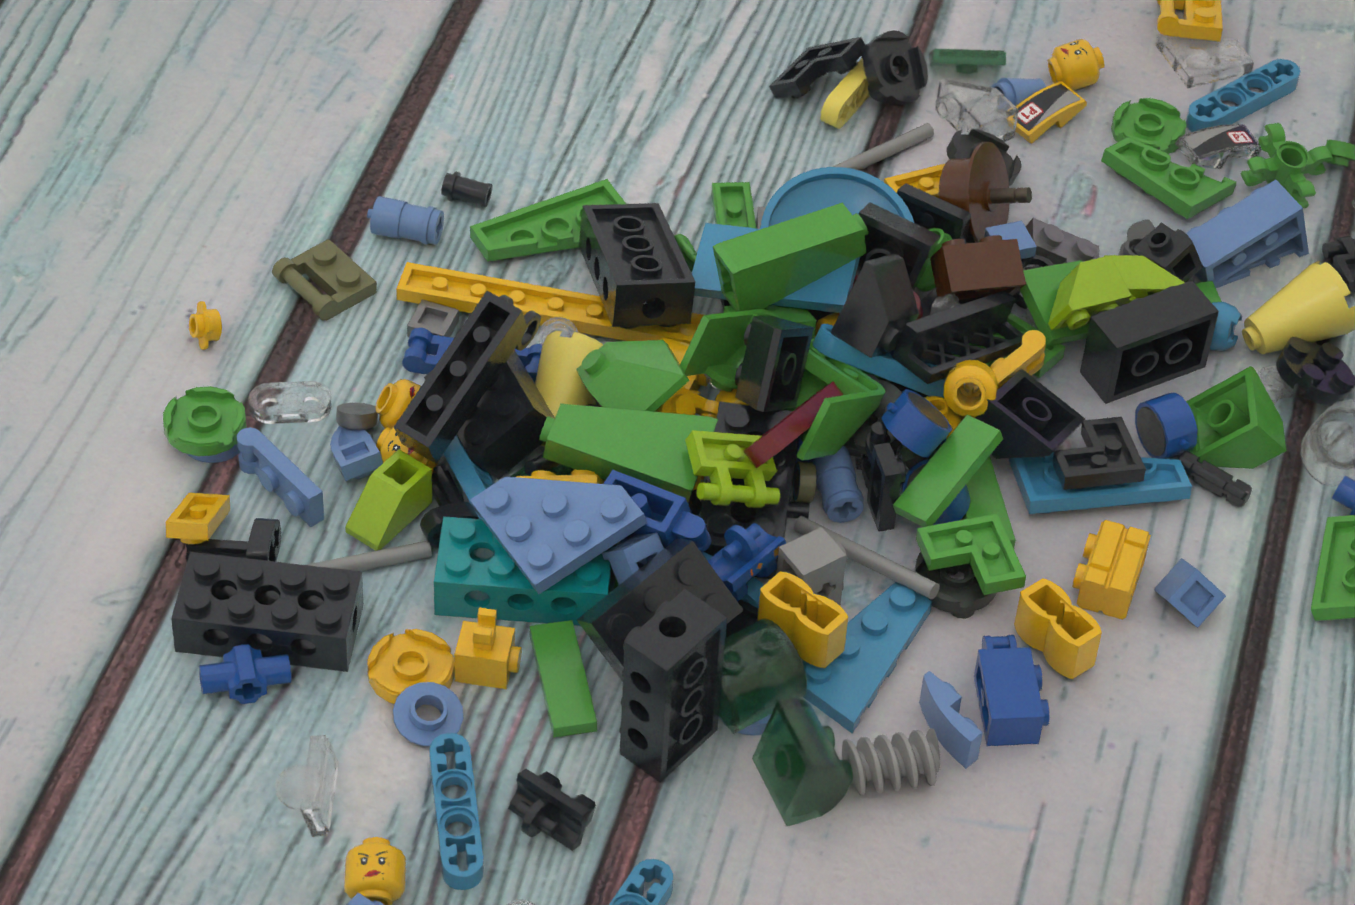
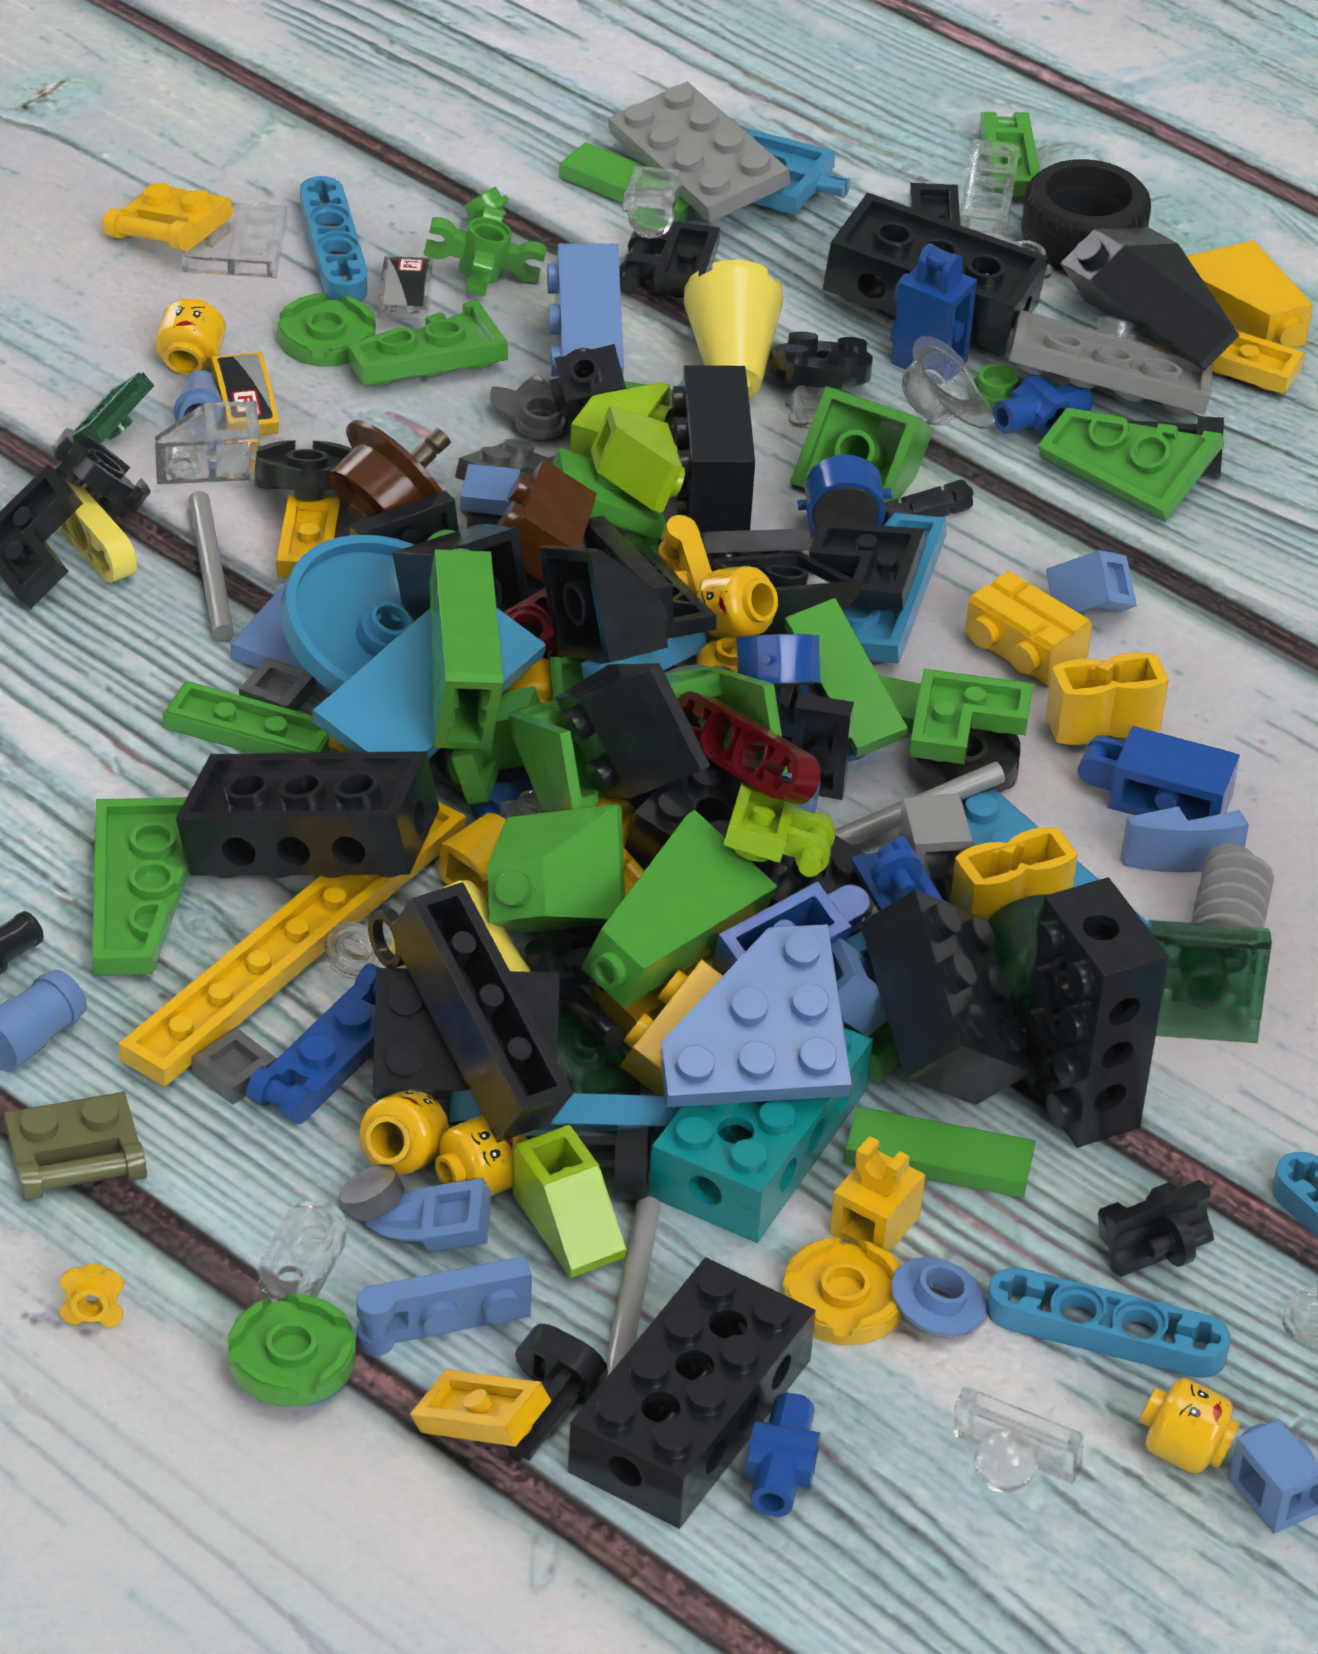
camera: 65 degrees left, 5 degrees down
(1081, 391) = (733, 543): none -> black plate

